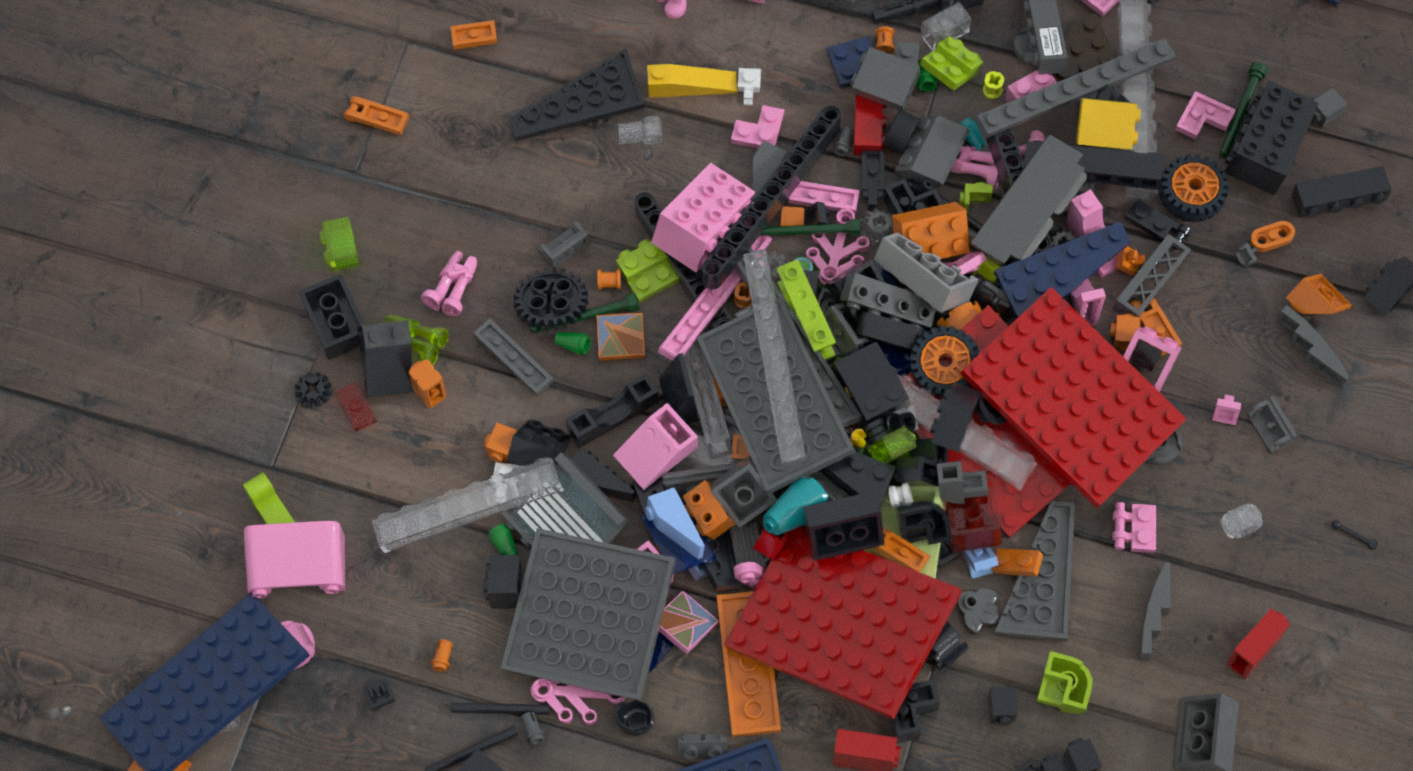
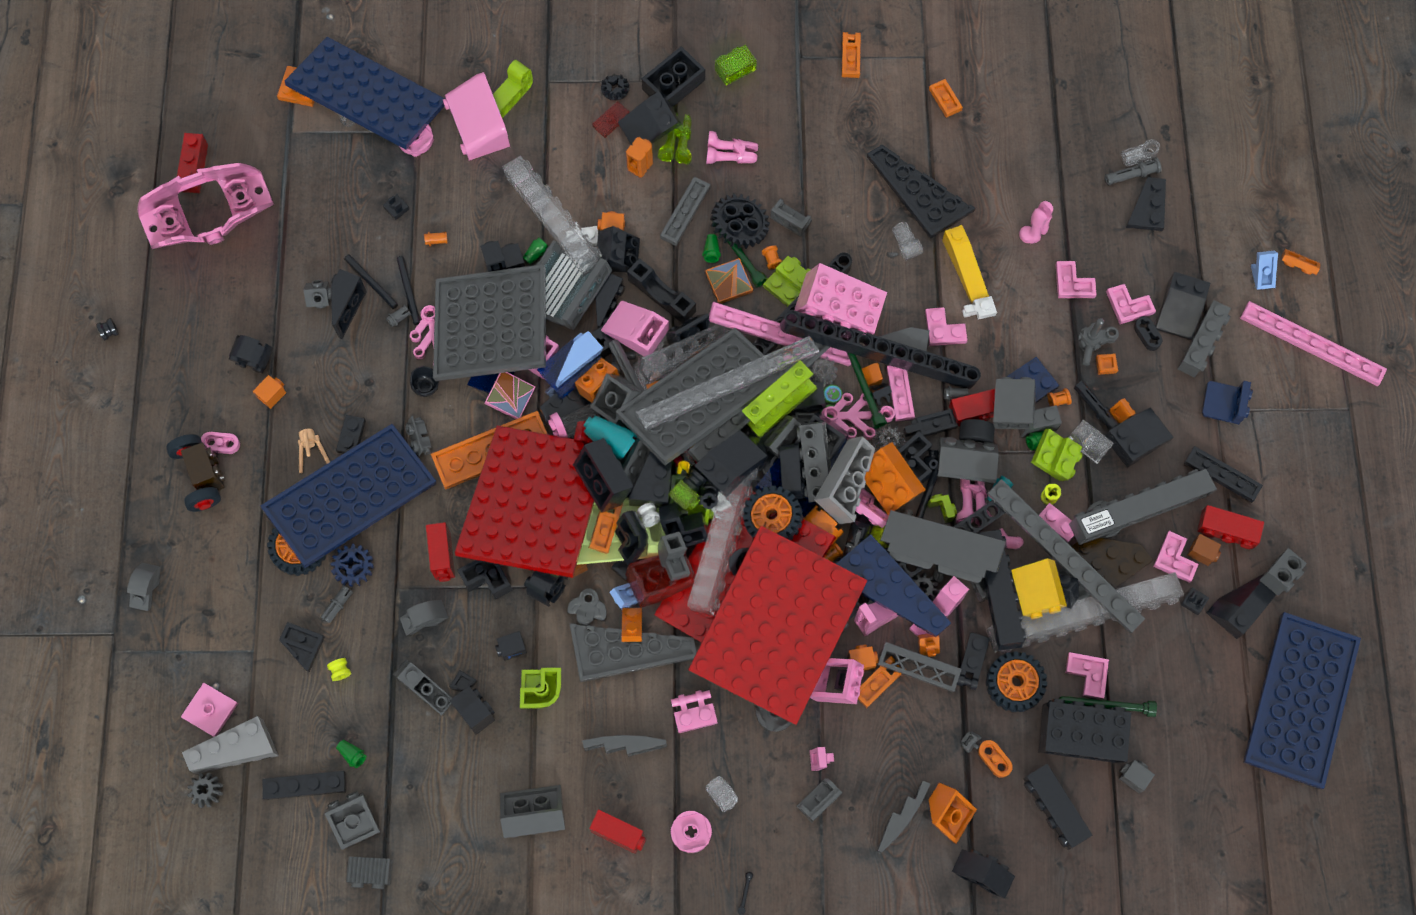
camera: 70 degrees right, 5 degrees up
(956, 413) = (722, 531): black brick -> none
(1282, 560) = (700, 839): none -> bright pink plate

